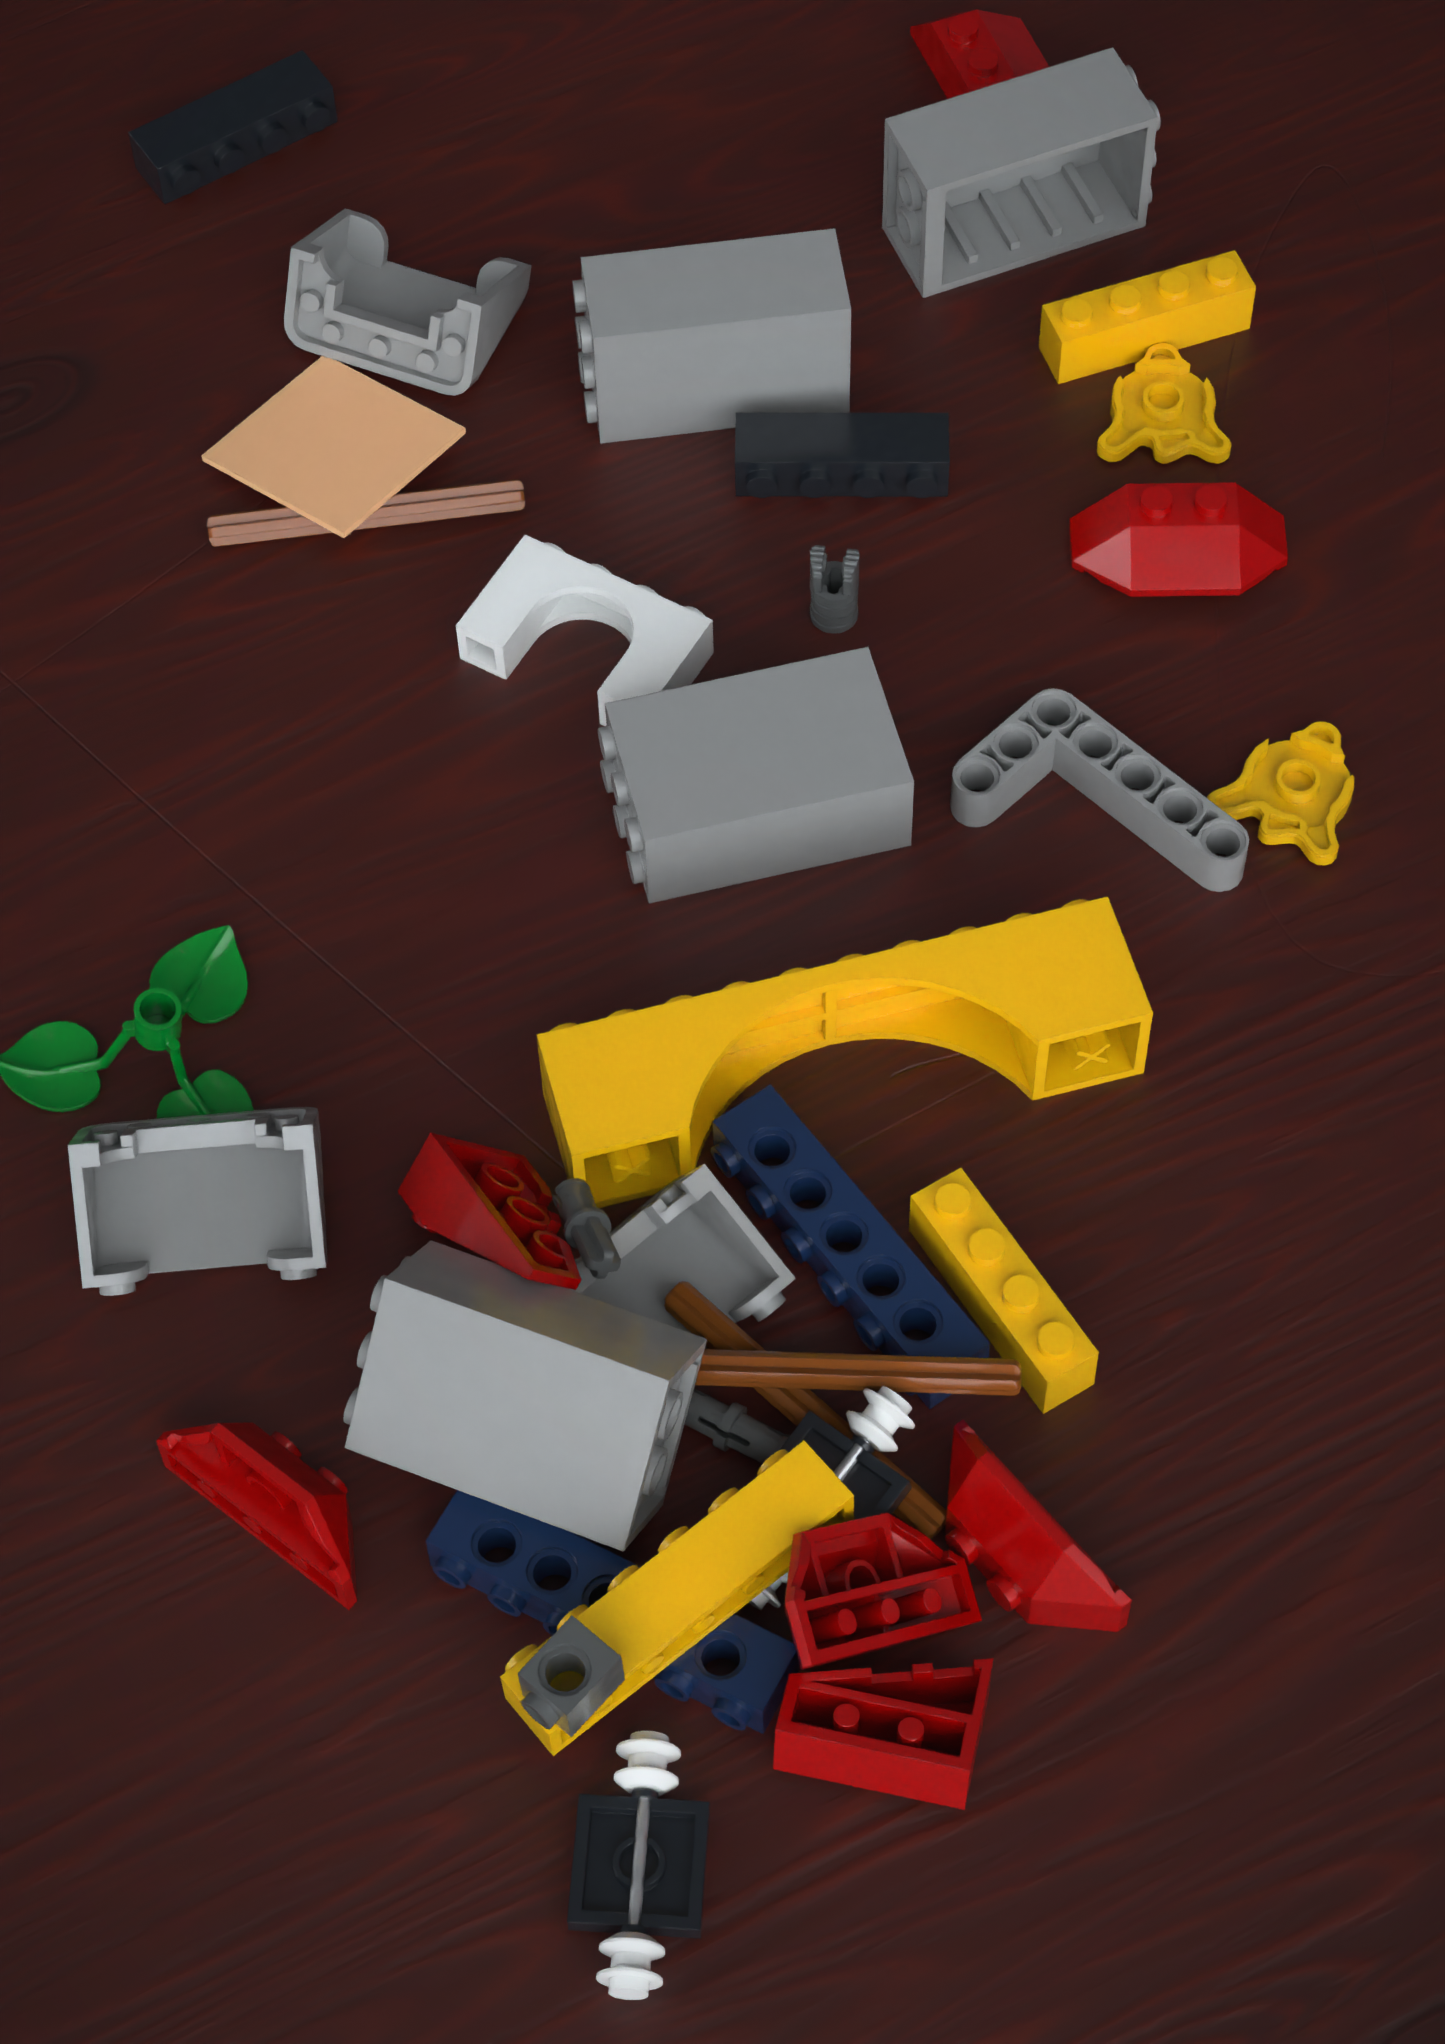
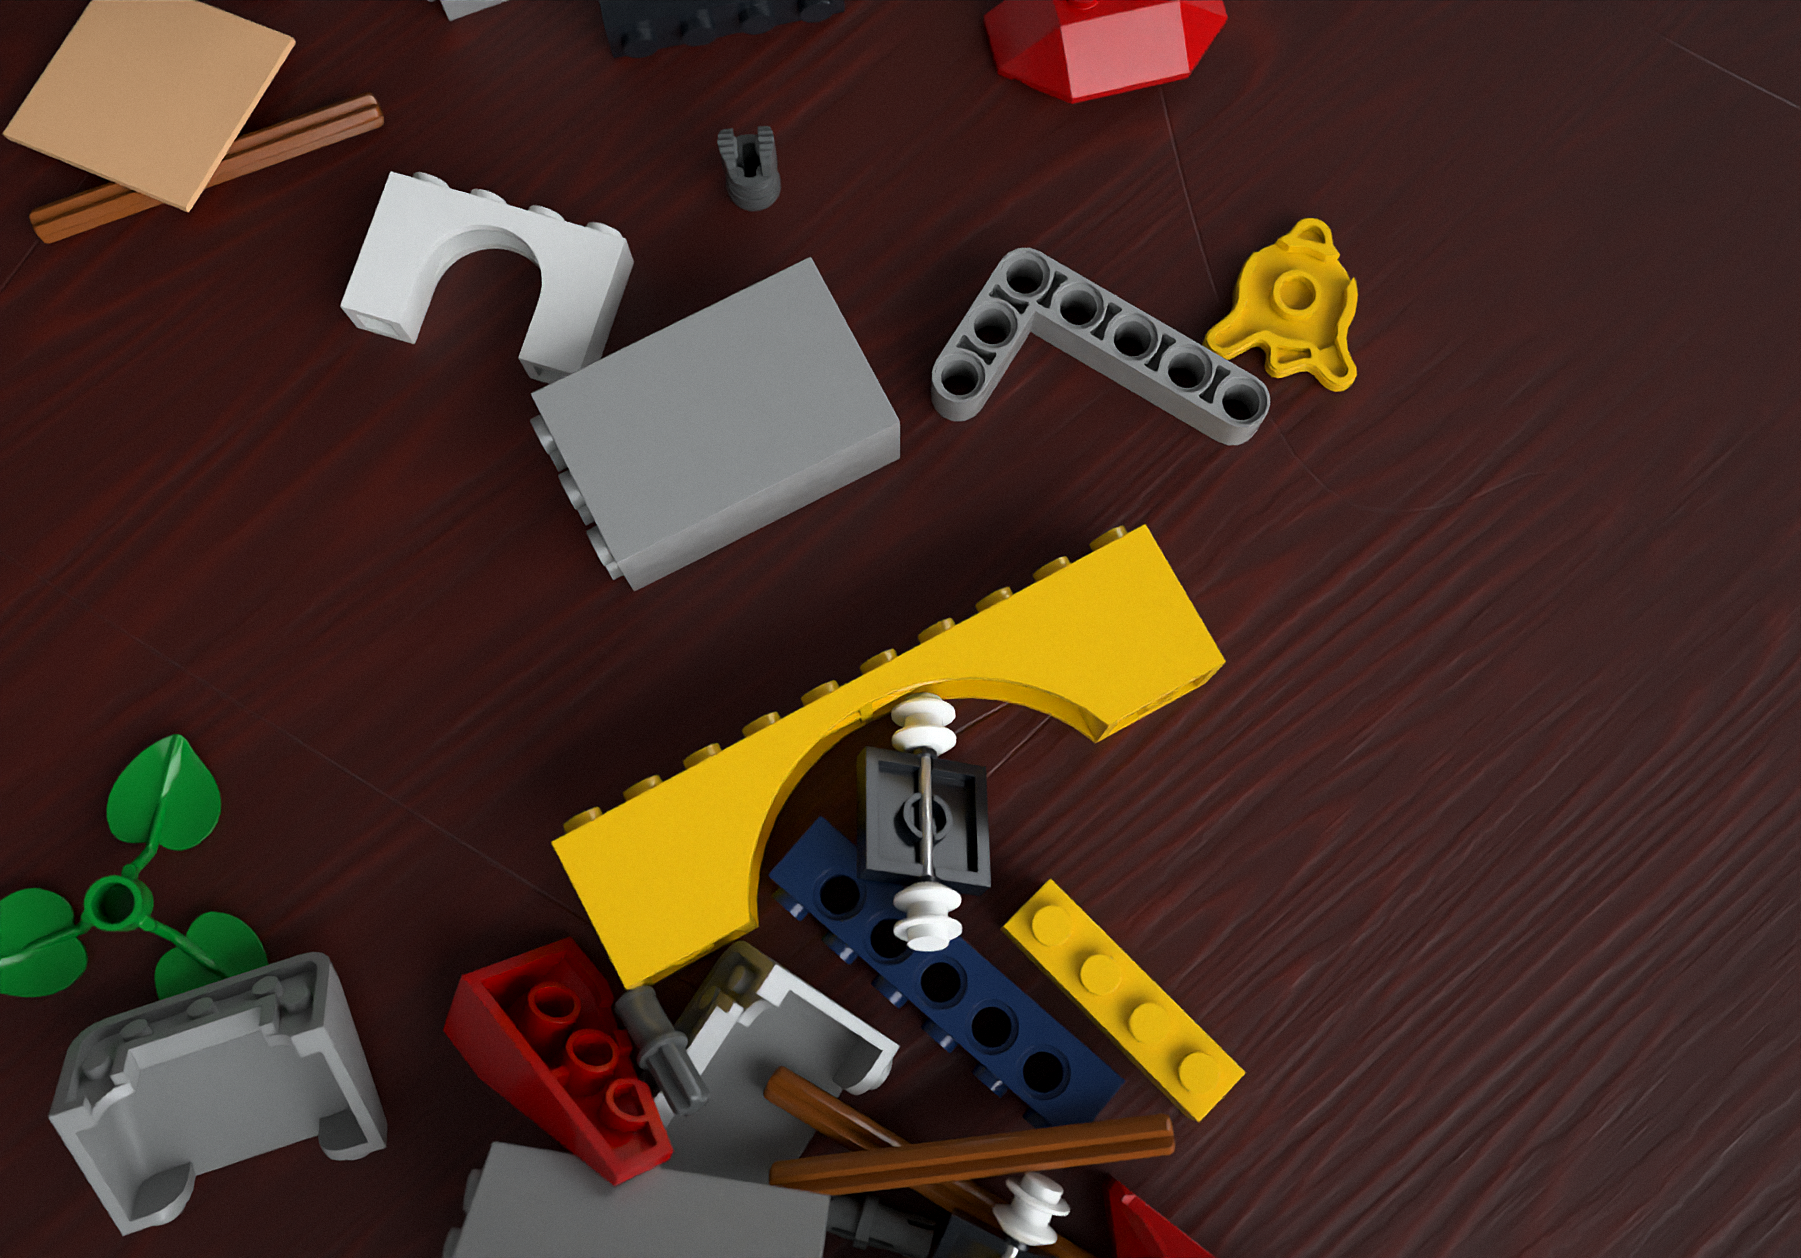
camera: 15 degrees left, 20 degrees up
(860, 1106) = (923, 822): none -> black plate

